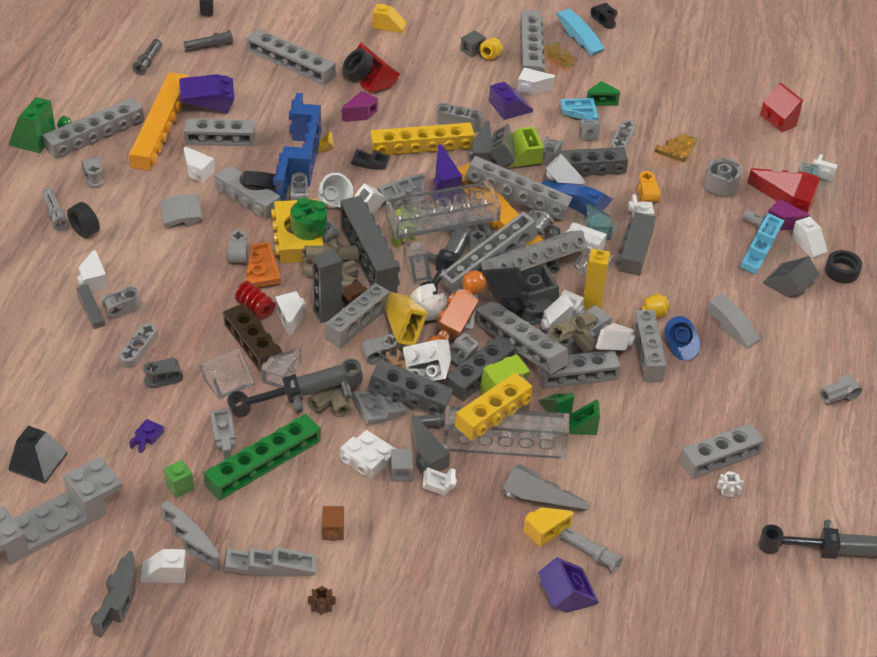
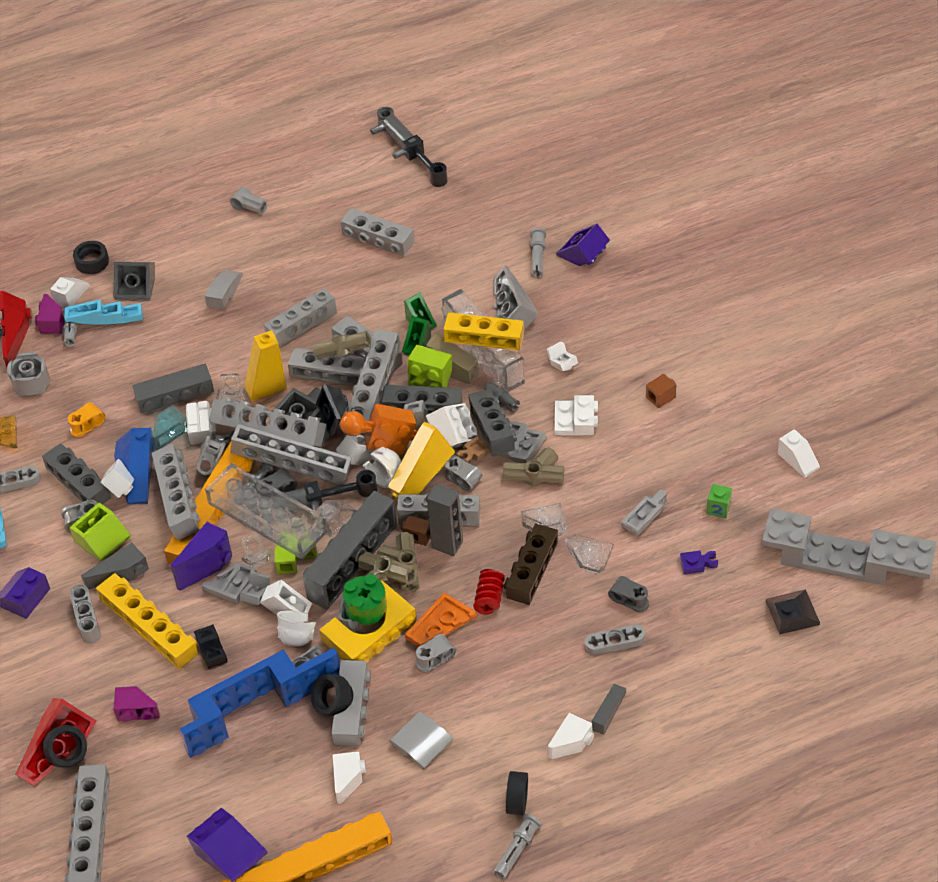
camera: 120 degrees left, 5 degrees up
(92, 170) = (434, 858): light grey piece -> none
(119, 598) = (839, 463): dark grey slope -> none
(123, 302) = (584, 685): light grey piece -> none
(193, 538) = (758, 457): light grey slope -> none
(219, 132) = (261, 769): light grey brick -> none
(262, 457) = (645, 469): green brick -> none
(270, 563) = (728, 404): light grey slope -> none
(290, 310) = (476, 558): white slope -> none
(300, 386) = (565, 481): dark grey piece -> none
(321, 600) = (729, 355): reddish brown gear -> none
(401, 465) = (568, 386): light grey brick -> none
(427, 448) = (539, 383): dark grey slope -> none
(503, 147) = (112, 542): dark grey slope -> none
(546, 524) = (541, 282): yellow slope -> none
(557, 312) = (320, 374): white slope -> none
(577, 302) = (295, 381): white bracket -> none
(590, 129) = (18, 506): light grey bracket -> none
(616, 337) = (319, 330): white slope -> none
(640, 207) = (117, 413): white bracket -> none
(658, 303) = (244, 336): yellow head -> none
(682, 338) = (273, 302): blue piece -> none
(730, 484) = (406, 213): white gear -> none

